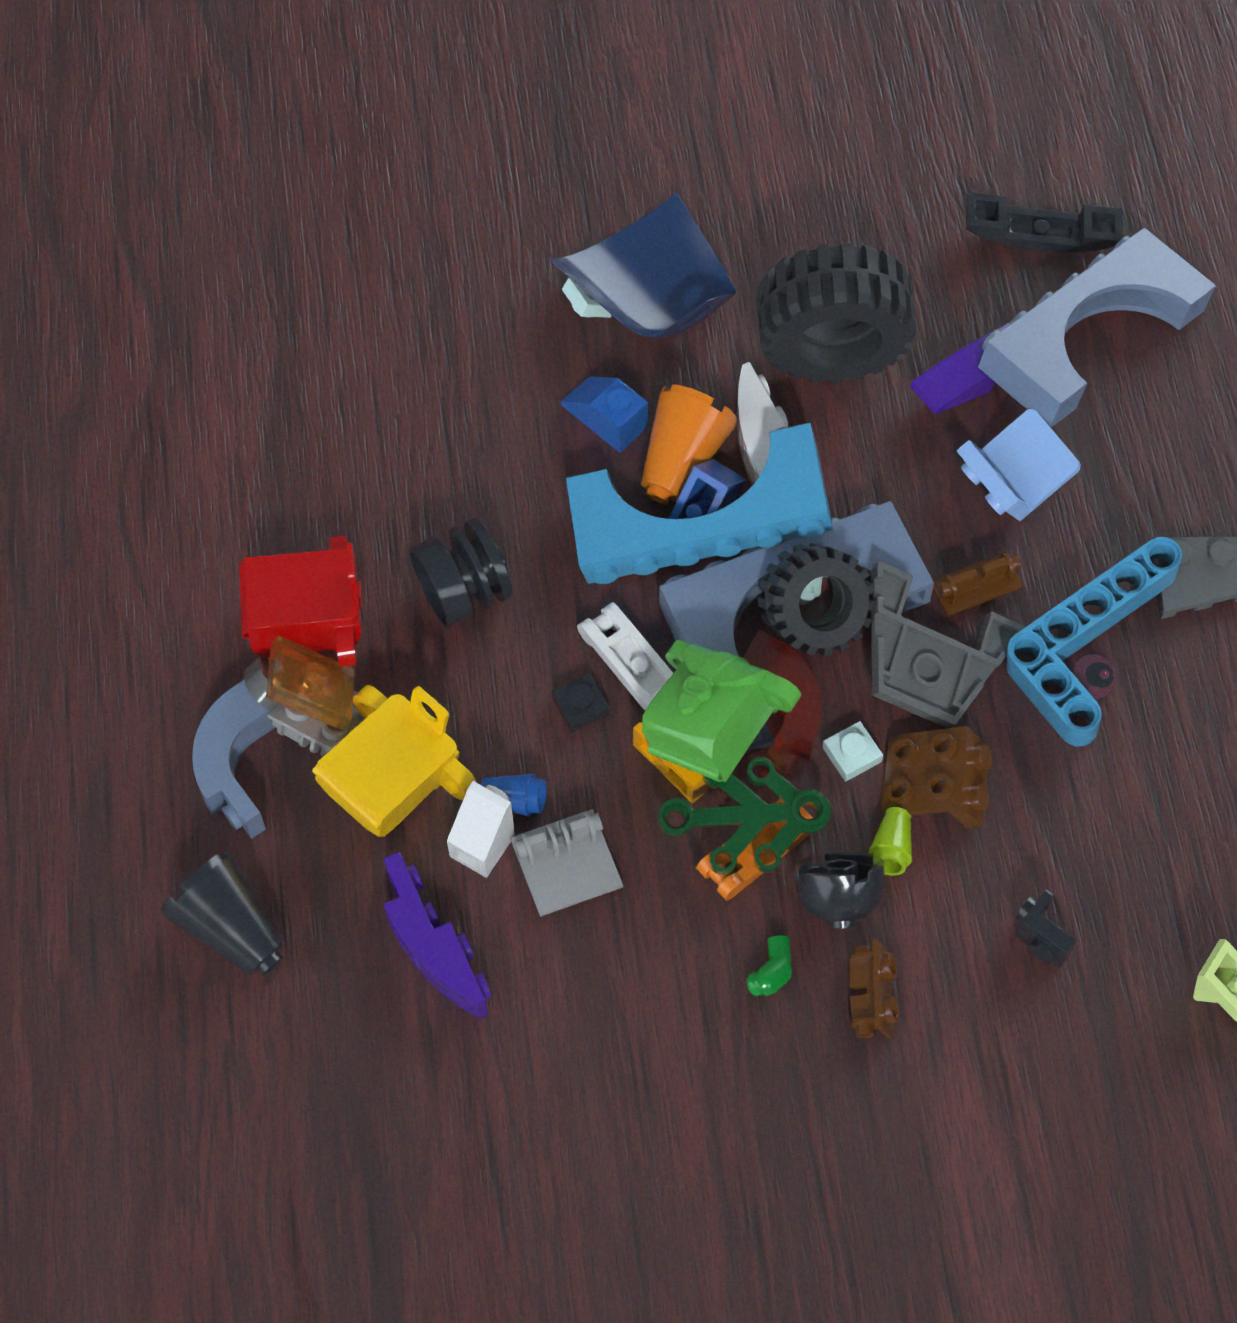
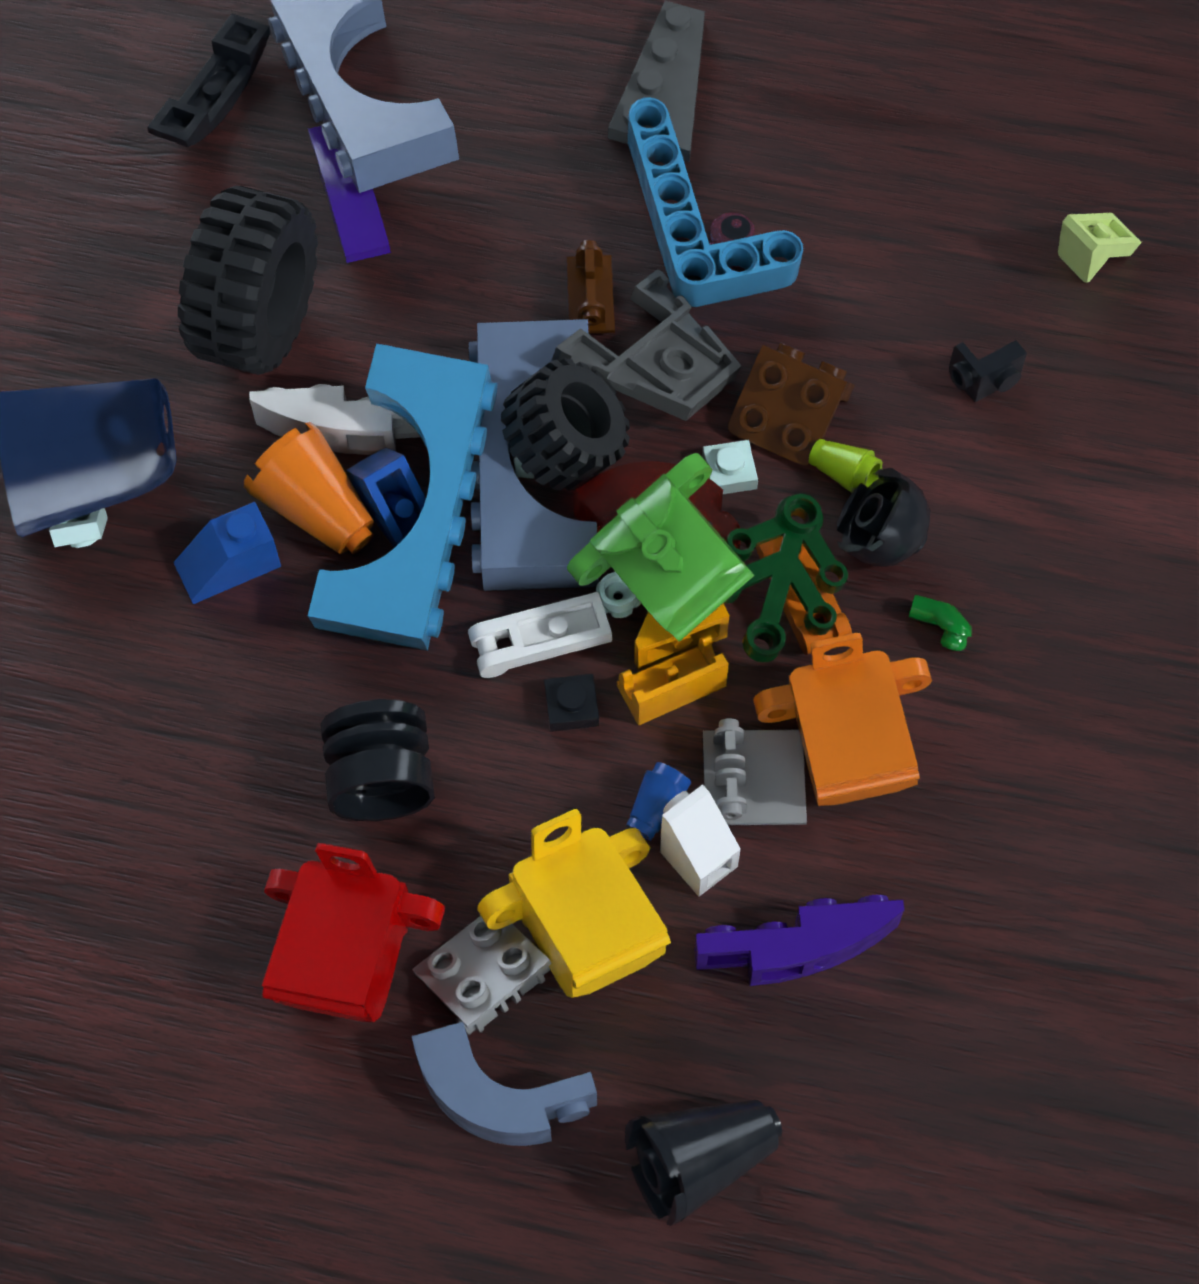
camera: 70 degrees left, 0 degrees up
(256, 681) = (424, 1017): dark grey beam -> none
(310, 683) = (454, 962): clear orange plate -> none
(626, 770) = (674, 681): none -> light orange hinge
(629, 913) = (850, 719): none -> orange piece
(875, 973) = (1015, 542): reddish brown hinge -> none
(1020, 465) = (483, 200): light blue bracket -> none

